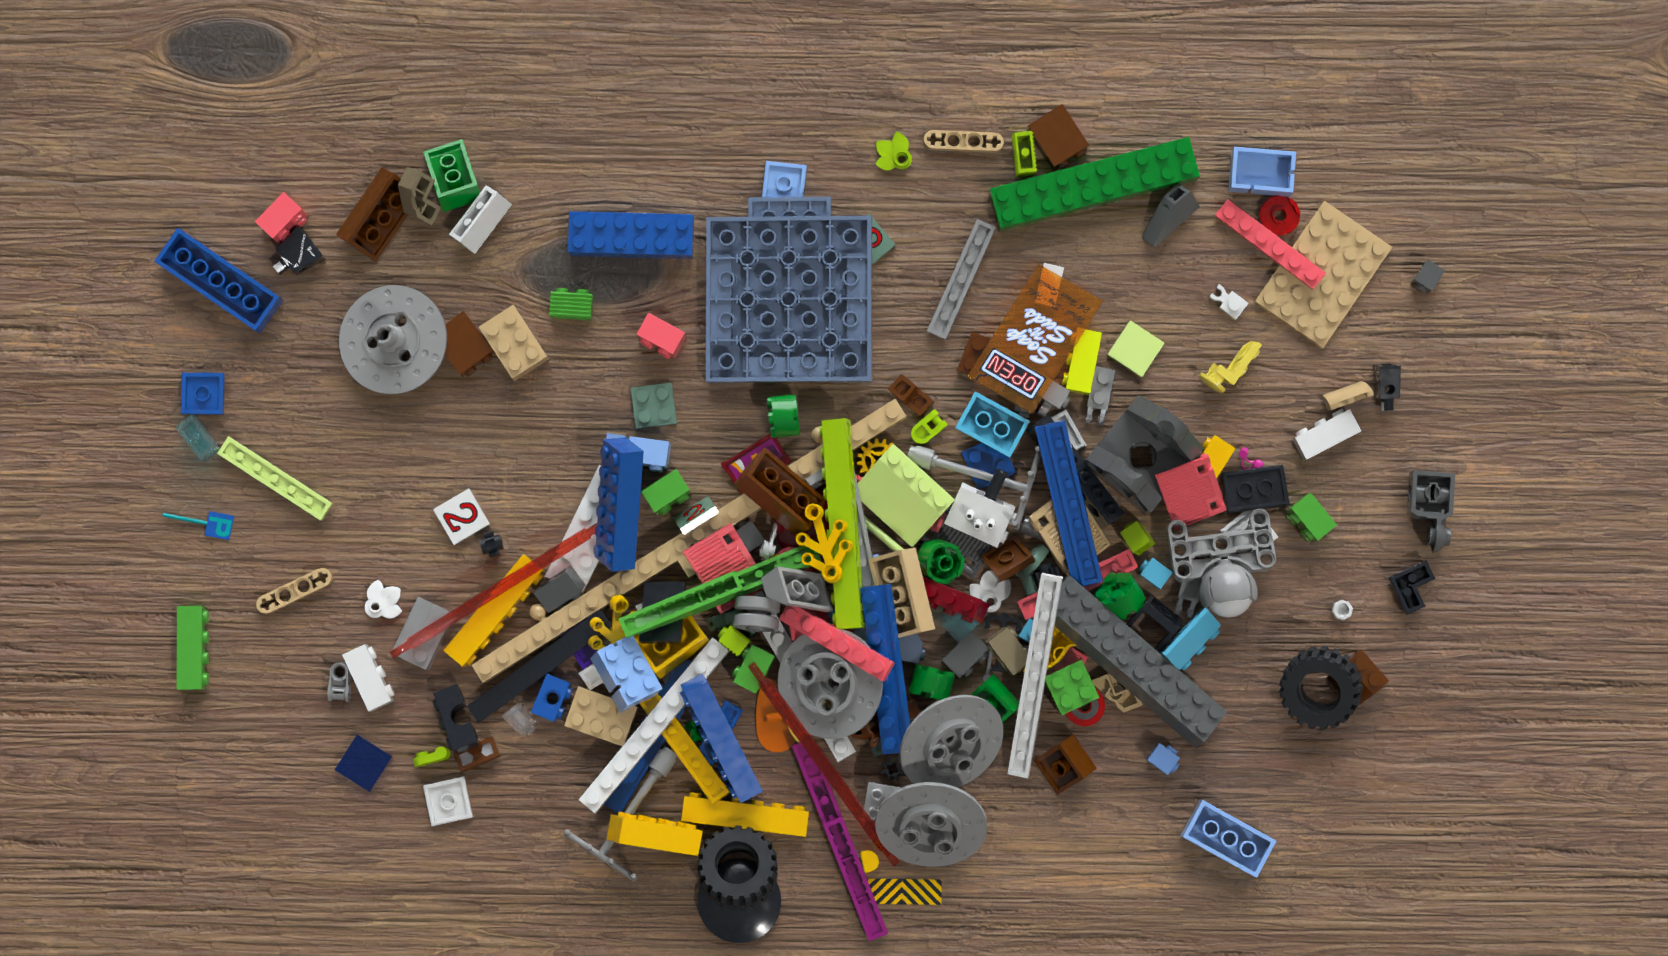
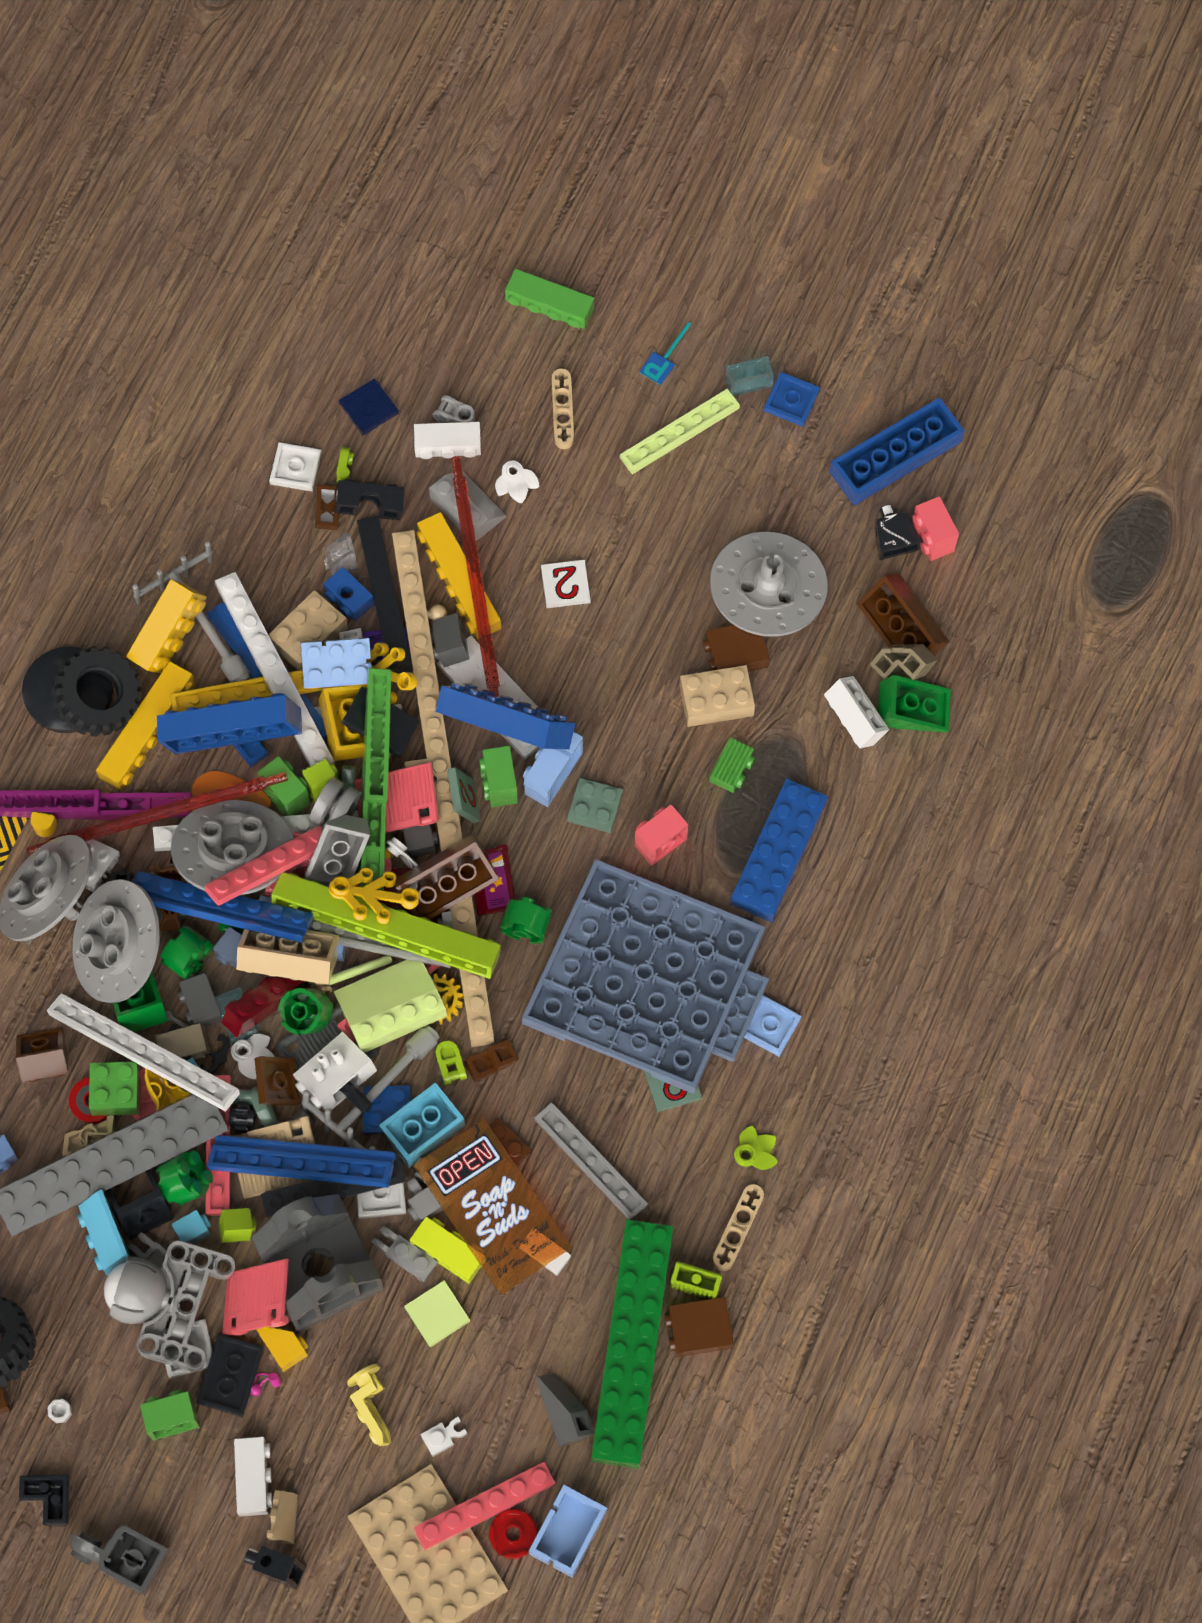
camera: 110 degrees right, 15 degrees down
(491, 544) = (524, 598): black gear -> none

